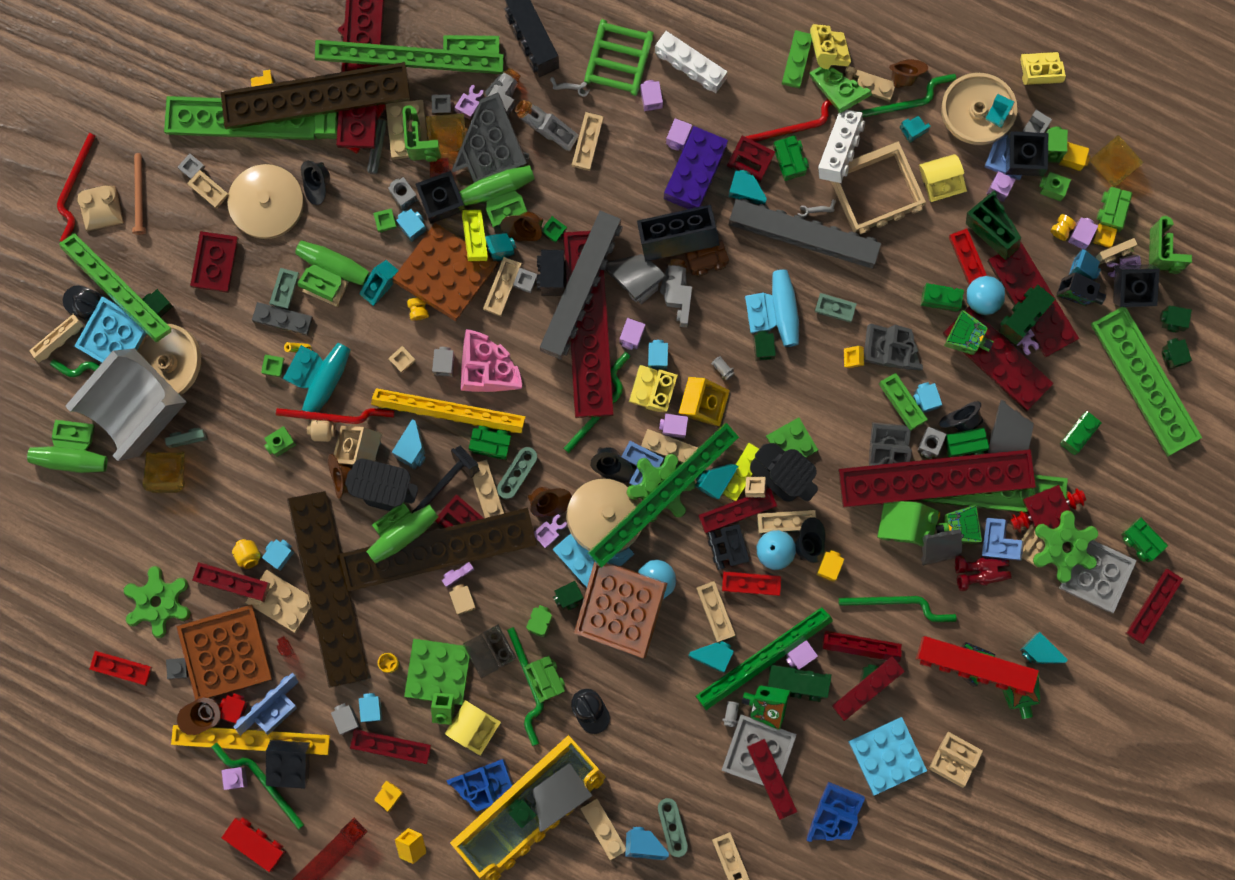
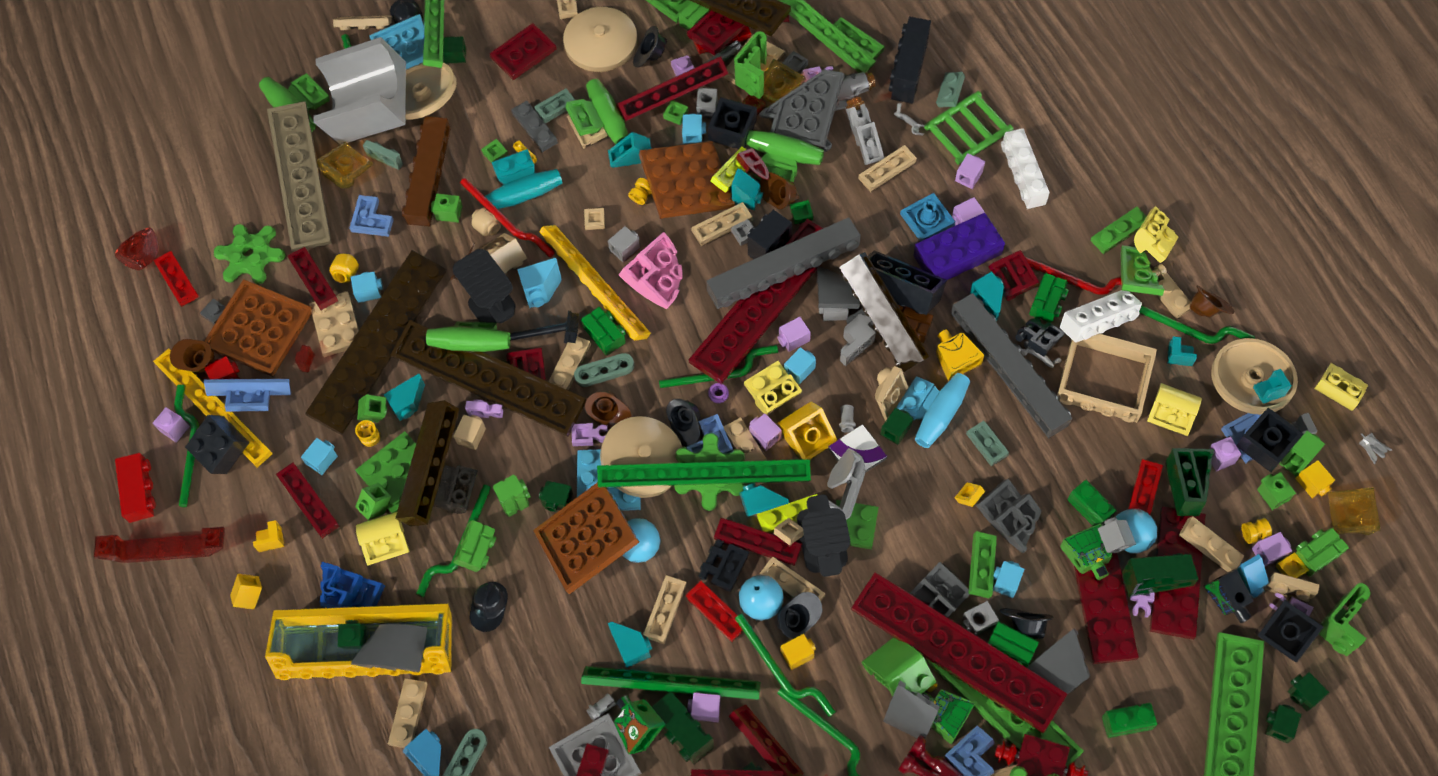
camera: 45 degrees right, 15 degrees down
(69, 671) = (138, 249): none -> clear red hat
(139, 510) = (299, 176): none -> dark tan plate
(223, 502) = (367, 221): none -> medium blue plate
(234, 423) = (427, 171): none -> reddish brown brick
(345, 719) = (293, 448): light grey brick -> none
(357, 176) = (681, 65): none -> lavender plate
(368, 204) = (672, 88): none -> dark red brick
(375, 643) = (372, 408): none -> bright green brick
(391, 614) = (406, 397): none -> teal slope
(459, 649) = (427, 463): none -> dark brown brick
(487, 219) = (752, 162): none -> dark red plate
(580, 34) = (950, 89): none -> sand green plate
(617, 417) = (717, 387): none -> medium lavender plate
(651, 160) = (927, 217): none -> dark azure plate
(688, 268) = (884, 312): none -> brick
(738, 322) = (890, 389): none -> tan slope
(750, 387) = (863, 444): none -> tile
(758, 412) = (848, 470): none -> light grey piece
(760, 255) = (957, 354): none -> yellow torso
(814, 194) = (1045, 338): none -> black plate
(828, 591) = (783, 681): none -> green piece
(980, 311) = (1116, 535): none -> light grey brick
(1042, 263) = (1211, 544): none -> tan plate
(1090, 97) = (1372, 445): none -> light grey piece

